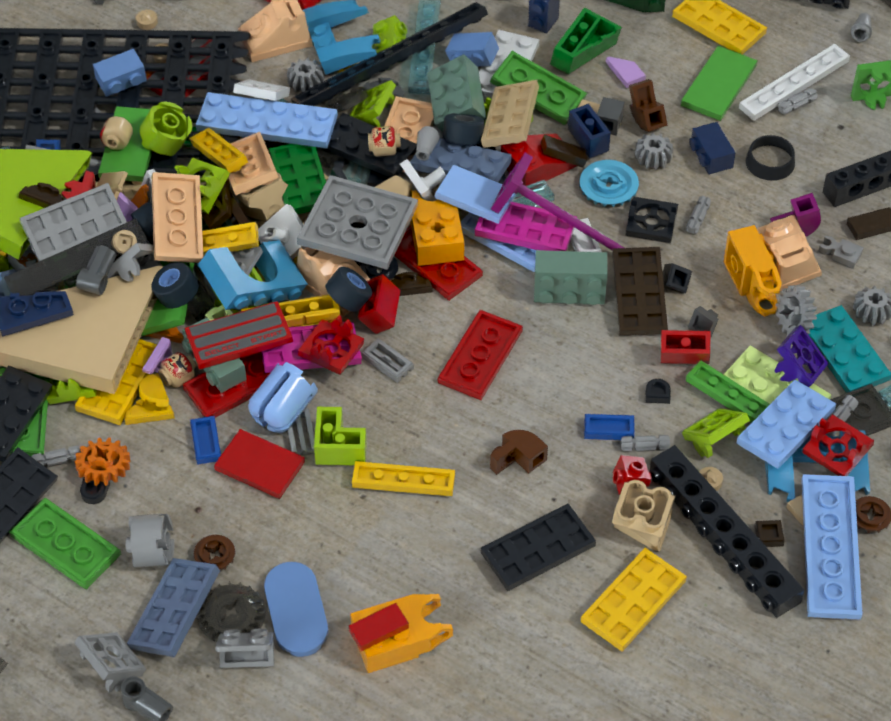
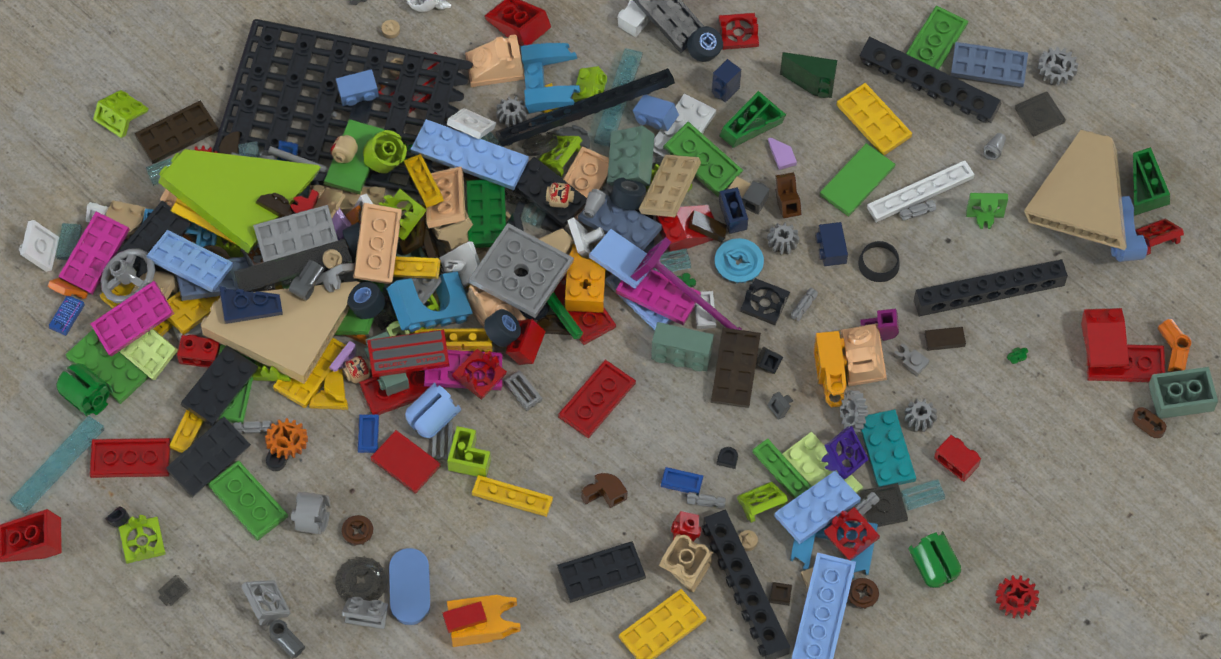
camera: 10 degrees right, 10 degrees up
(173, 607) = (319, 569): sand blue plate -> none
(419, 270) = (564, 316): none -> green axle
(685, 346) = (757, 425): red brick -> none

